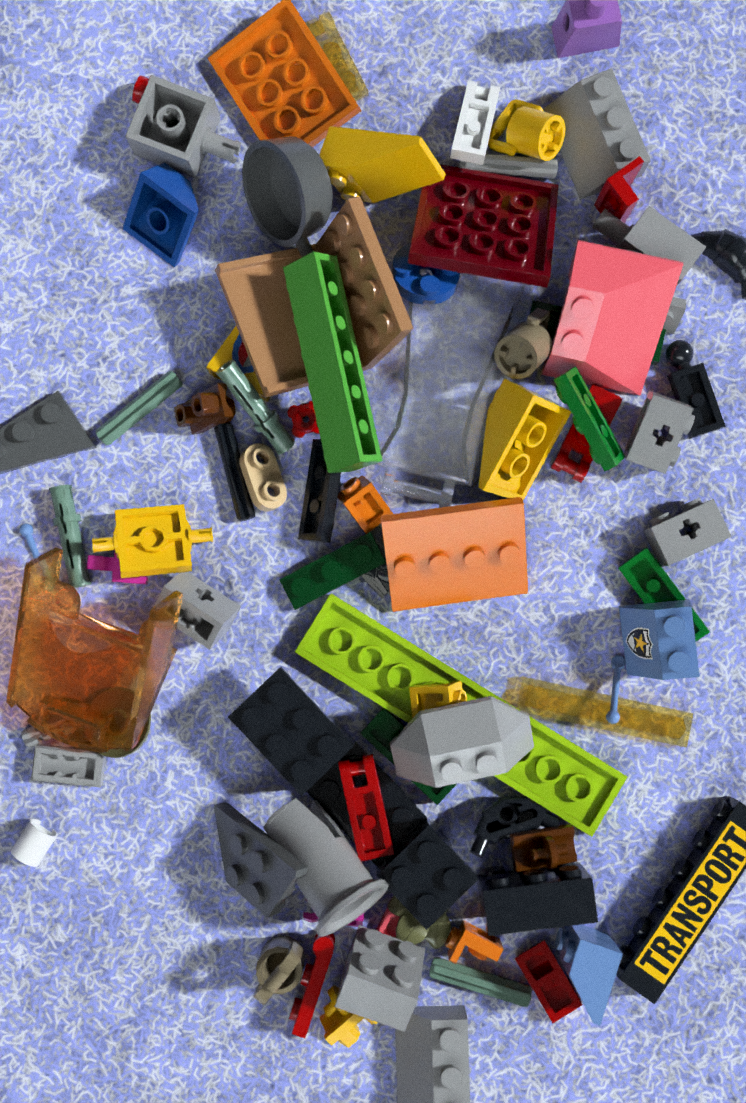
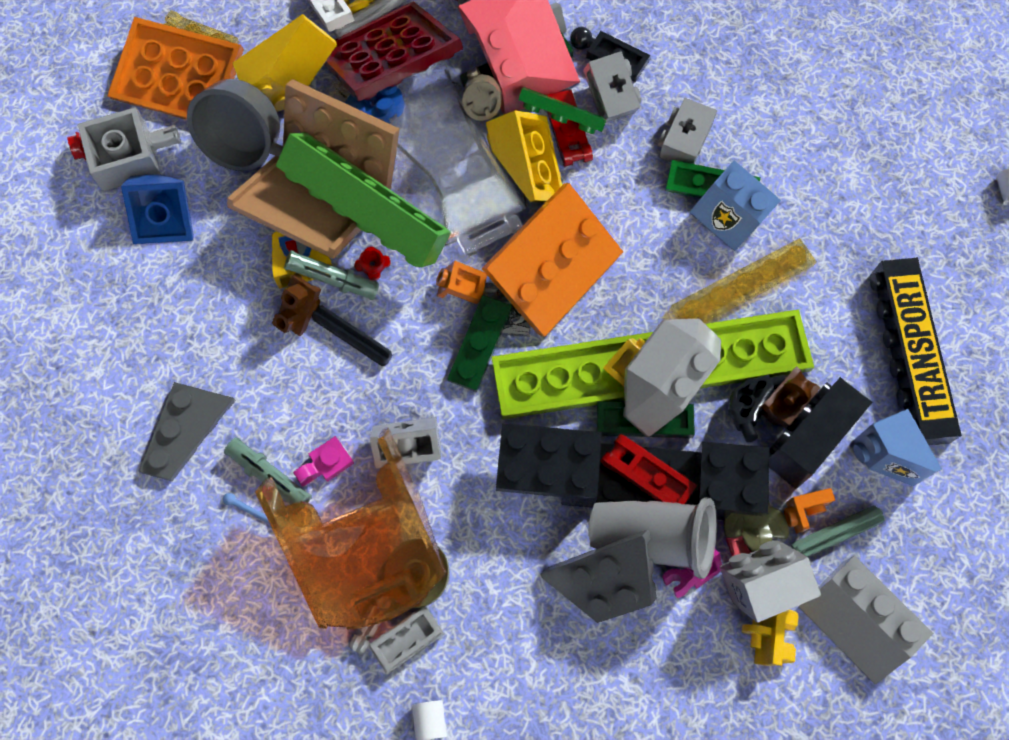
camera: 45 degrees left, 15 degrees down
(138, 408) = (245, 348): sand green axle -> none
(152, 540) = (333, 423): yellow plate -> none
(261, 476) = (375, 322): tan plate -> none
(278, 967) = (692, 641): dark tan piece -> none
(313, 979) = (724, 633): red plate -> none
(319, 499) = (425, 300): black plate -> none
(548, 981) = (886, 493): red slope -> none
(617, 664) = (723, 249): medium blue hinge -> none

